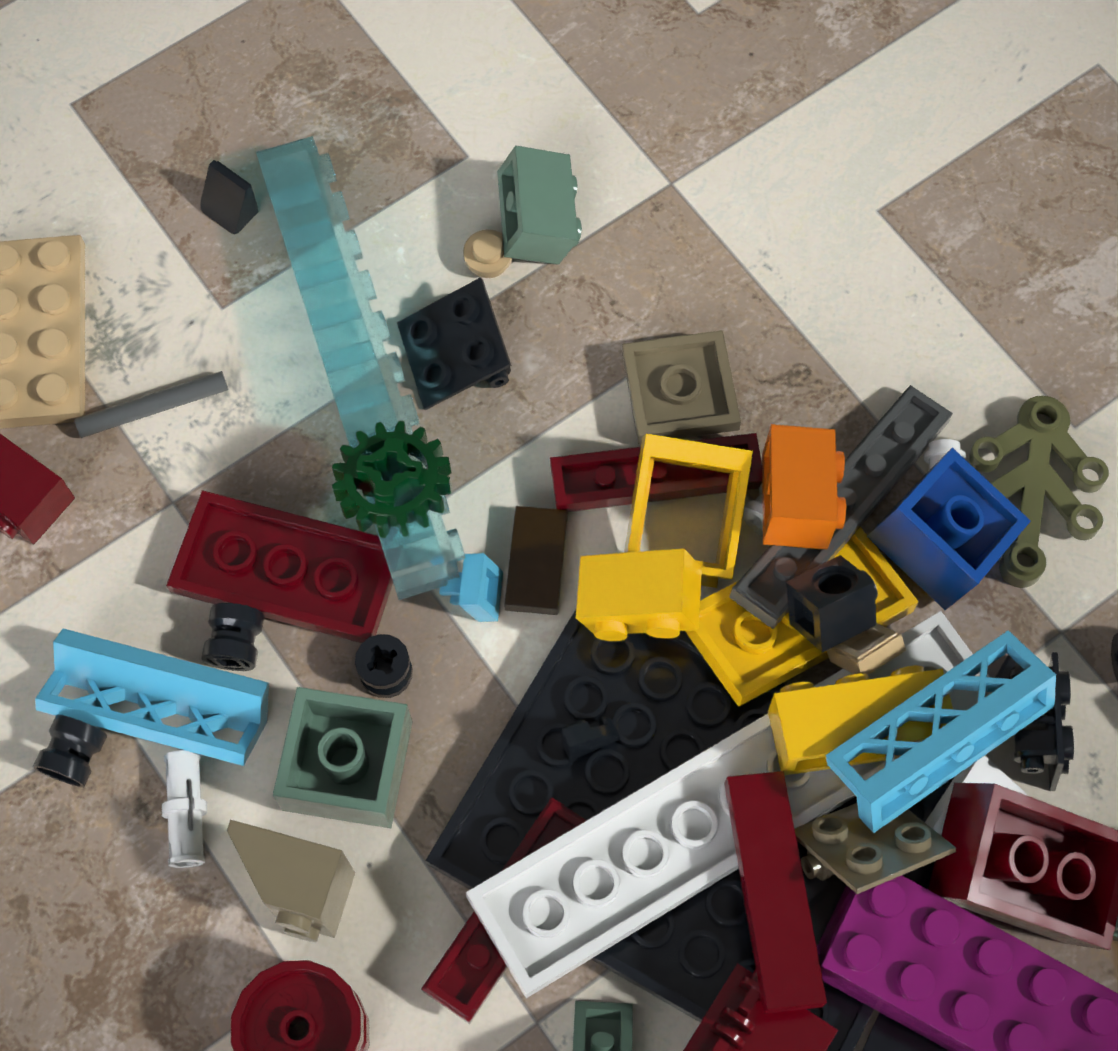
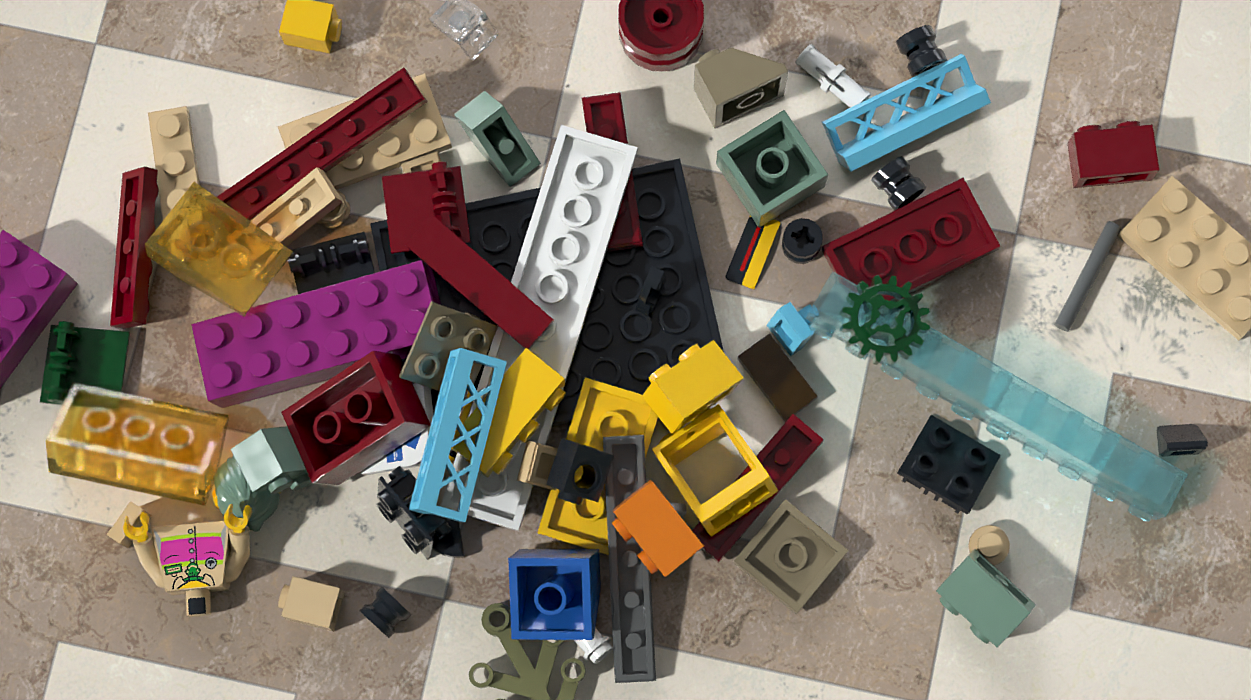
camera: 140 degrees right, 10 degrees up
(447, 704) = (752, 253): none -> sticker

